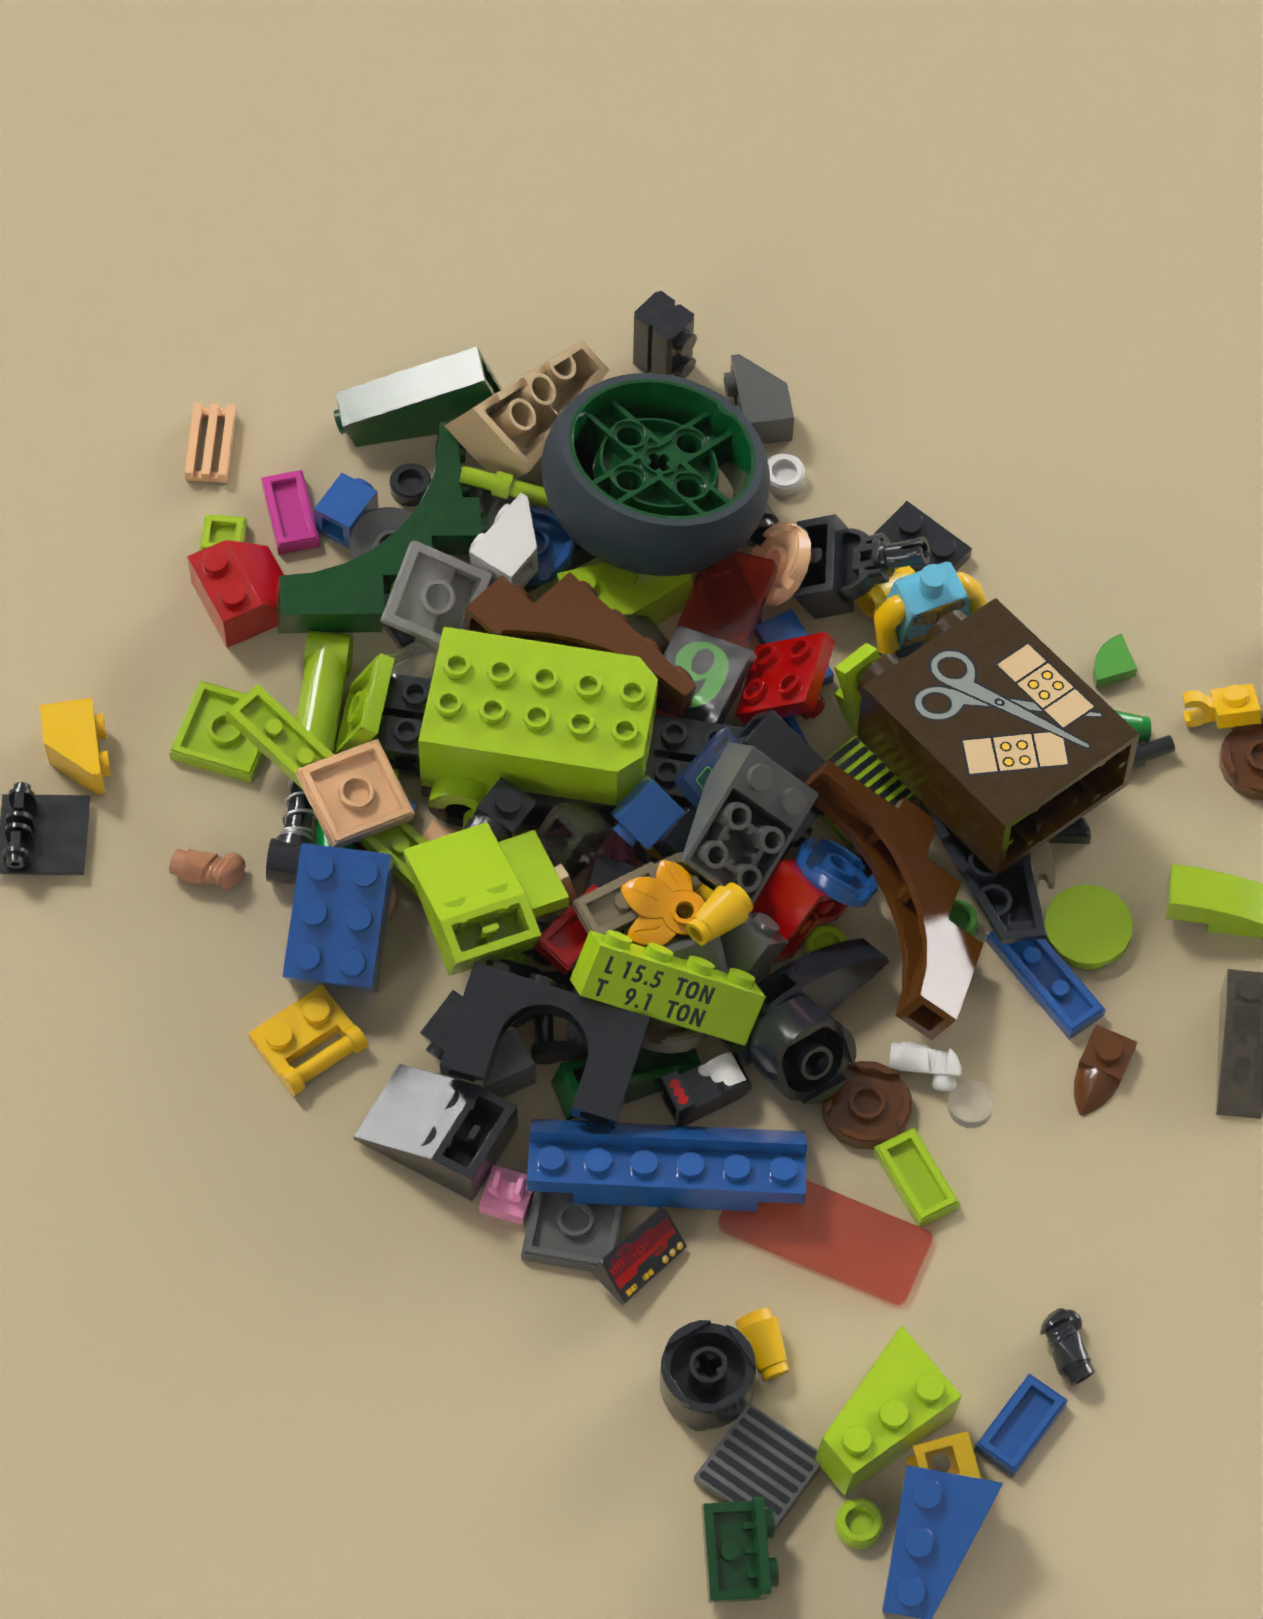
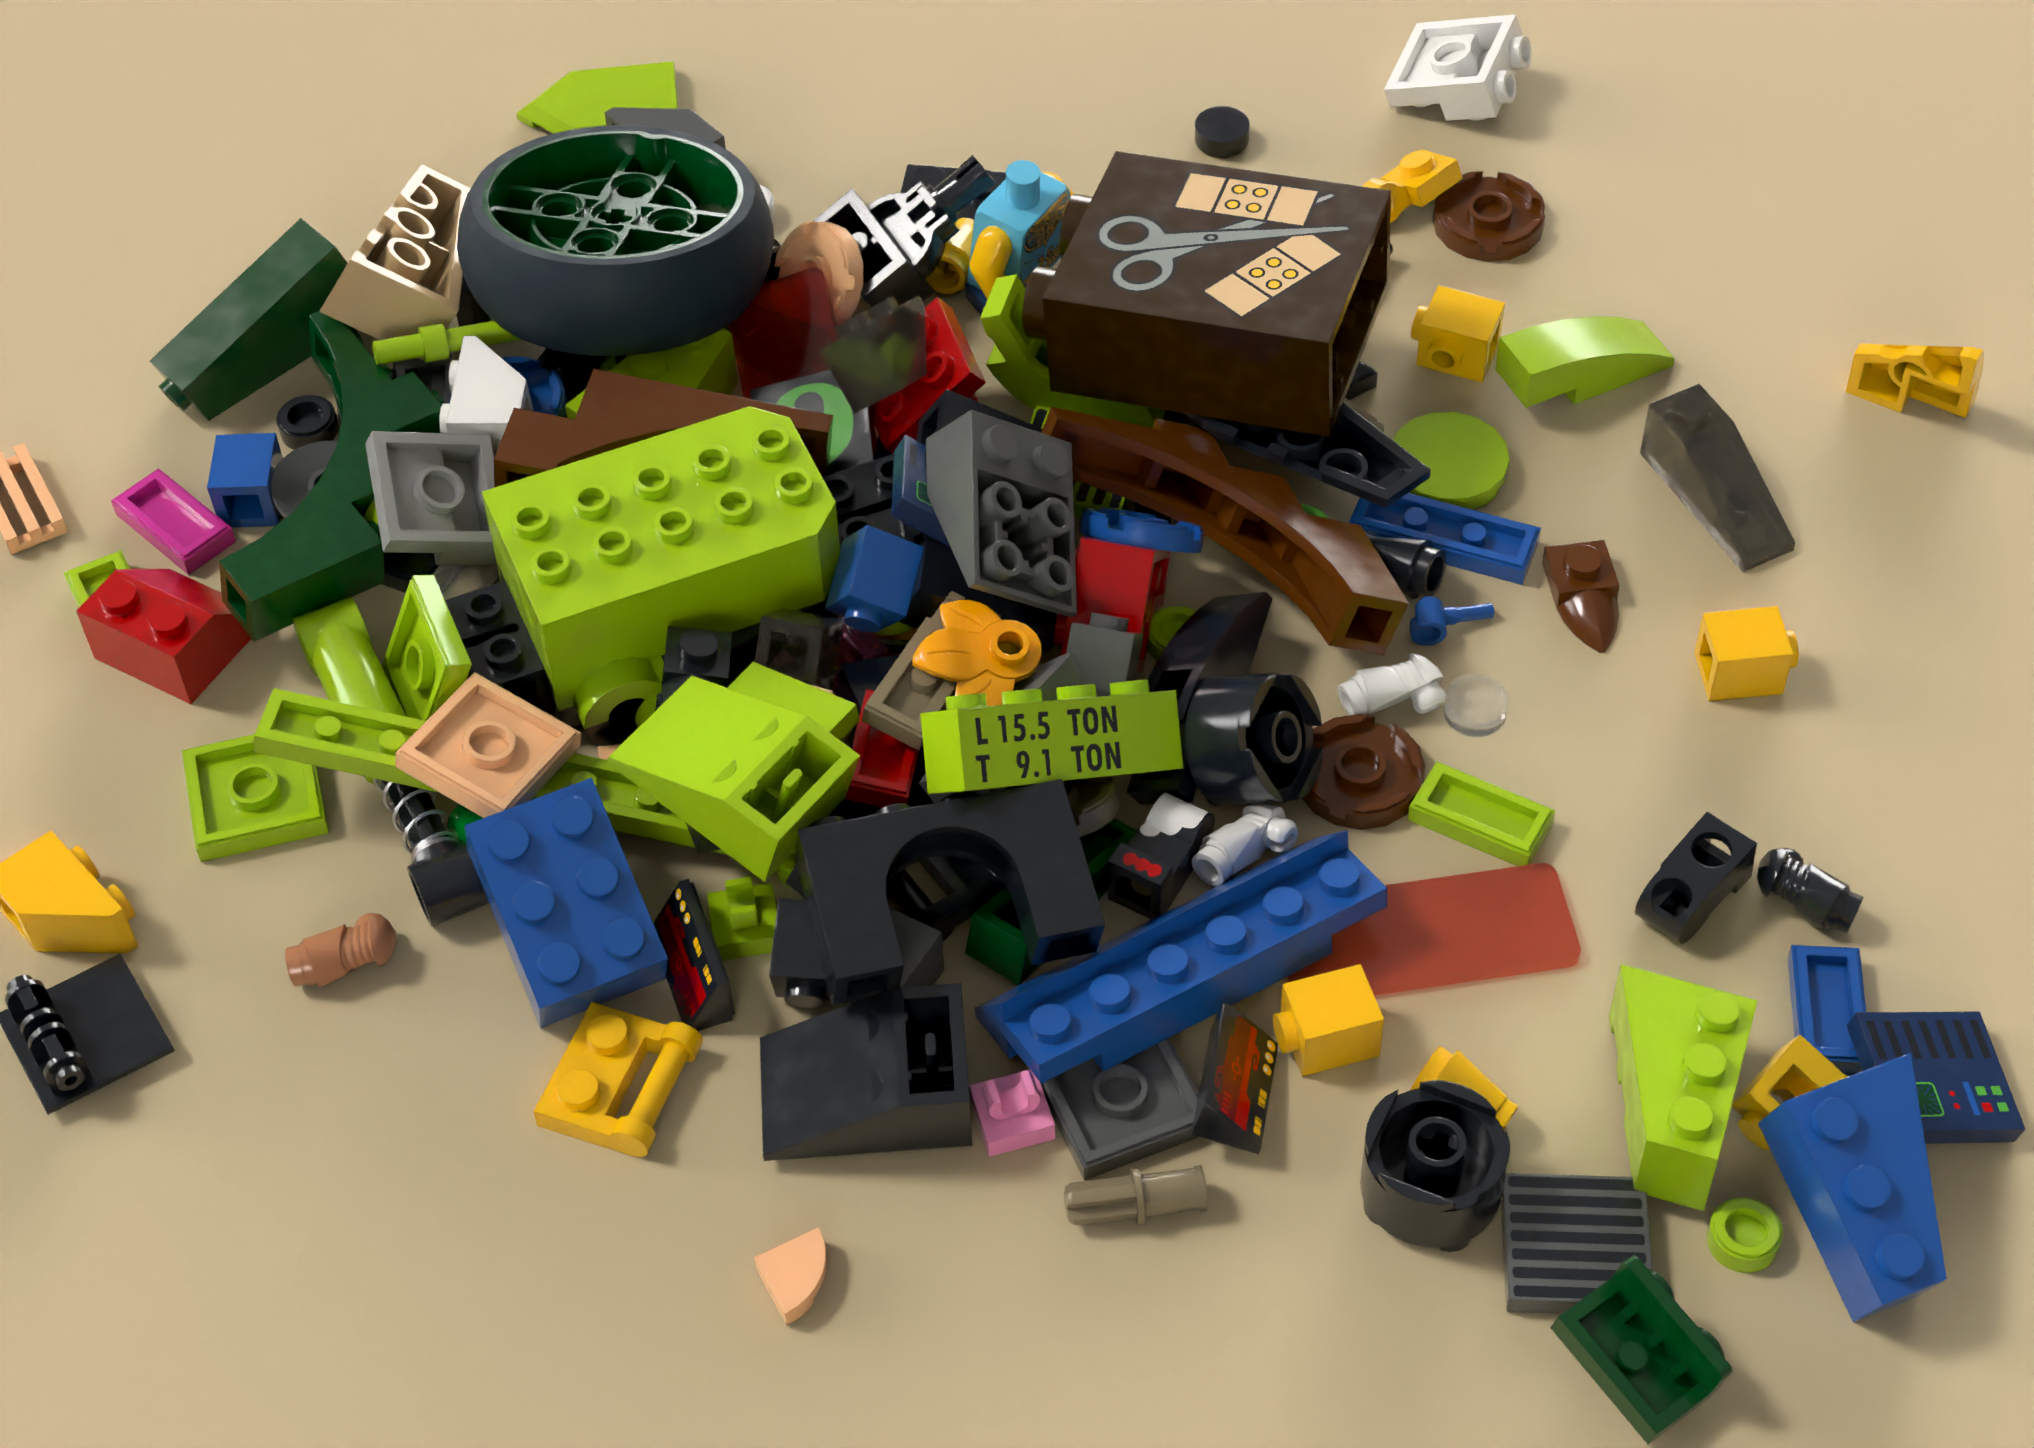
camera: 30 degrees left, 10 degrees down
(325, 1216) = (794, 1273): none -> light nougat tile
(395, 993) = (694, 962): none -> slope
(436, 984) = (743, 918): none -> lime tile
(537, 1288) = (1136, 1196): none -> dark tan axle
(664, 337) = (509, 112): black brick -> none
(719, 1252) = (1329, 1020): none -> yellow brick
(720, 913) = (1056, 622): yellow cone -> none
(754, 333) = (585, 95): none -> lime tile
(757, 1110) = (1243, 843): none -> white arm
(760, 655) = (879, 352): none -> clear smoke slope
(989, 1028) = (1431, 619): none -> blue hand
(998, 984) = (1412, 563): none -> black cone
(1002, 1298) = (1696, 878): none -> black leg
(1042, 1504) = (1954, 1068): none -> dark blue tile
(1135, 590) = (1222, 131): none -> black tile
(1158, 1172) = (1745, 653): none -> yellow brick
(1162, 839) = (1458, 333): none -> yellow brick

